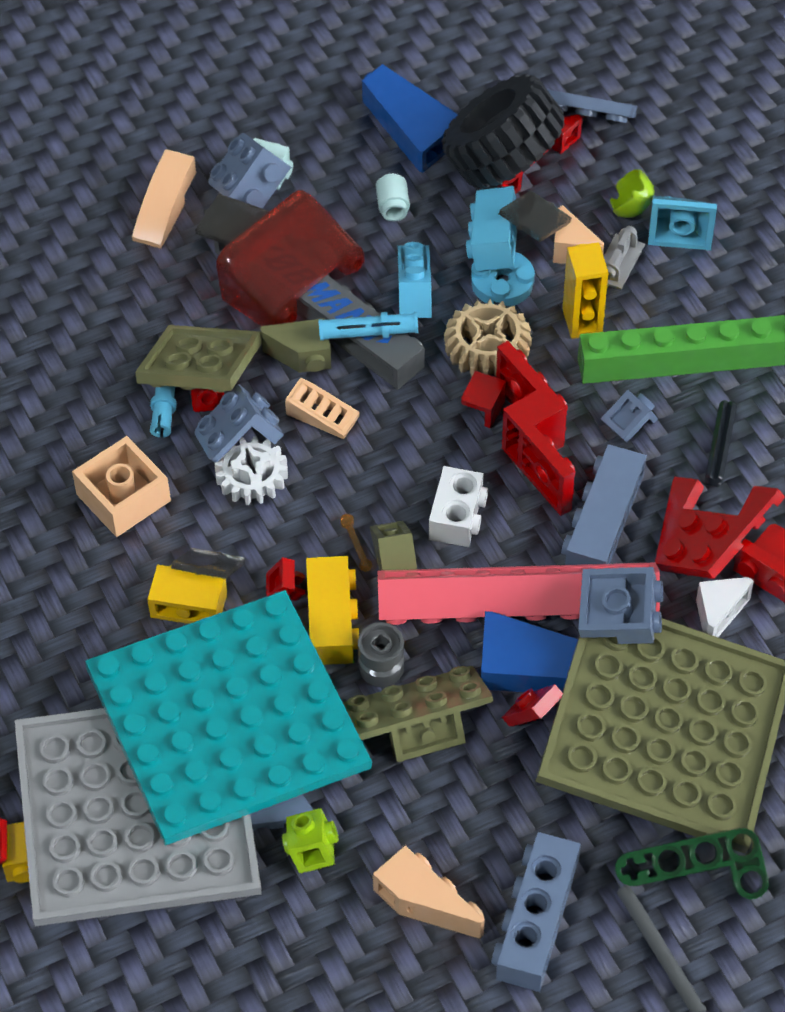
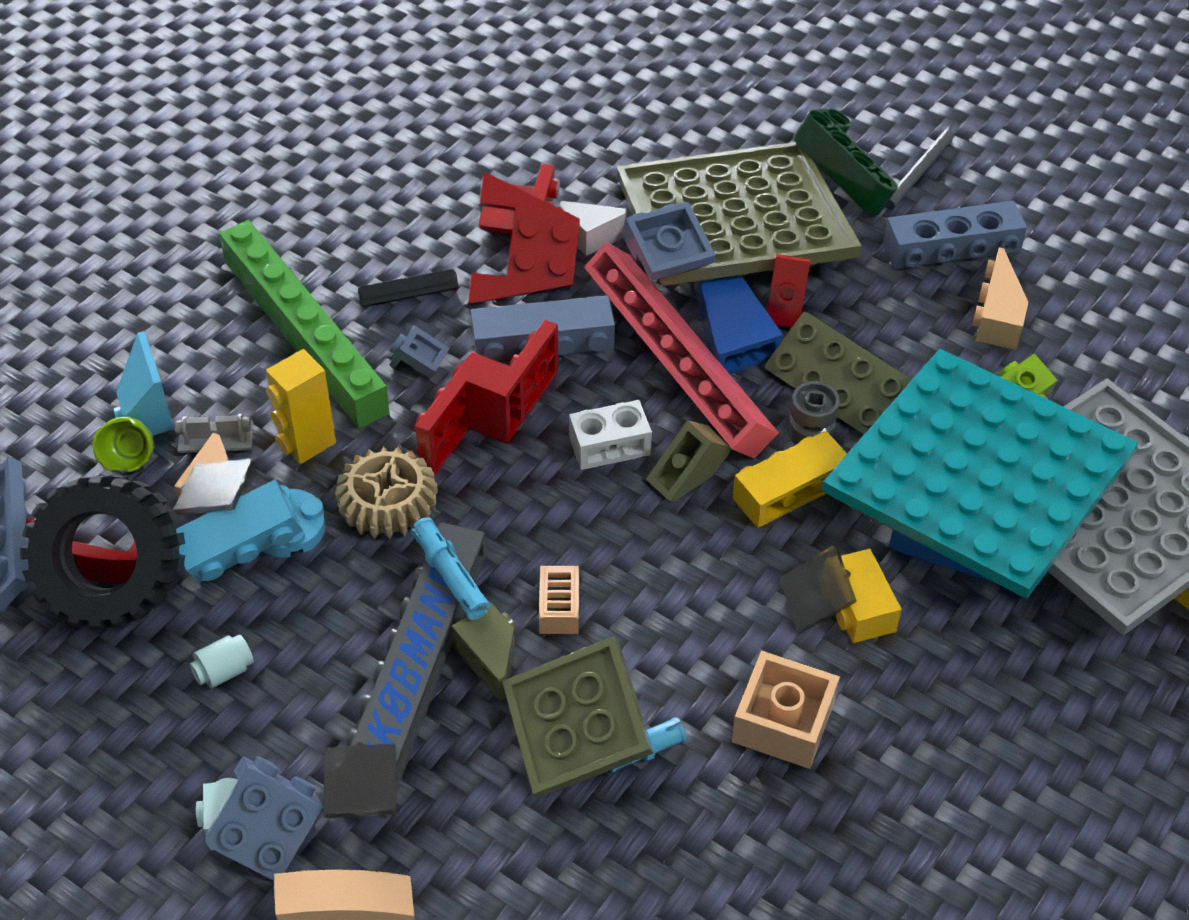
camera: 120 degrees left, 5 degrees down
(232, 419) = (651, 643): sand blue bracket -> none
(266, 463) = (679, 615): white gear -> none
(284, 258) = (388, 698): clear red windscreen -> none
(284, 577) = (790, 529): red tile -> none
(347, 522) = (675, 521): clear orange hinge -> none
(407, 115) = (79, 699): blue slope -> none
(414, 279) = (339, 586): medium azure slope -> none
(485, 394) = (465, 457): red panel -> none

